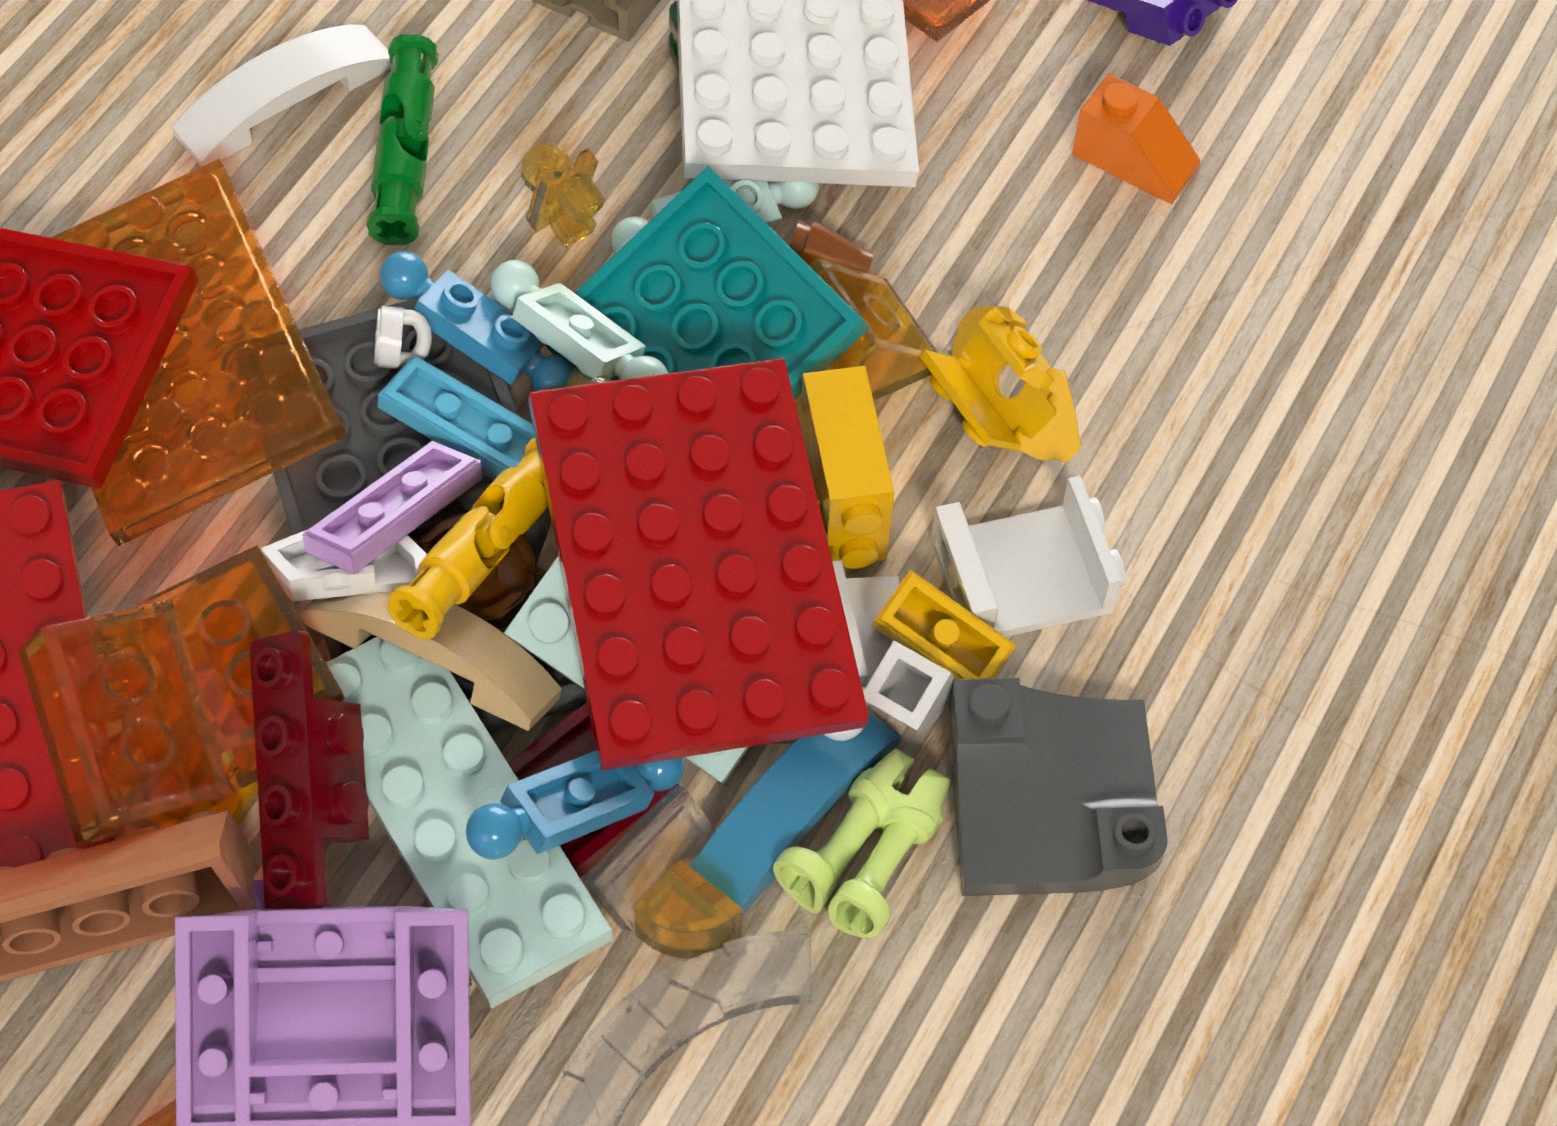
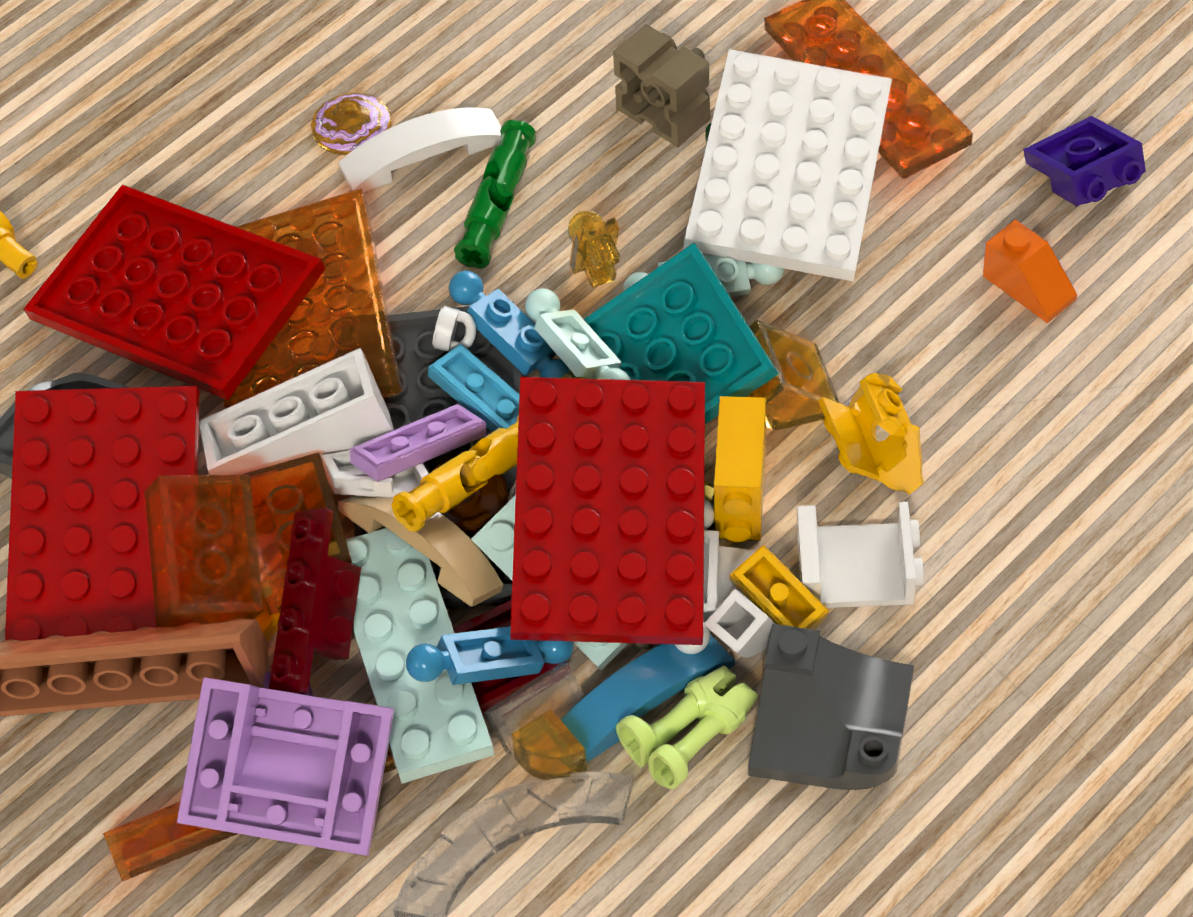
camera: 20 degrees right, 5 degrees down
(172, 70) = (349, 122): none -> dish
(219, 496) = (310, 414): none -> white slope
(821, 242) = (775, 313): dark orange cone -> none

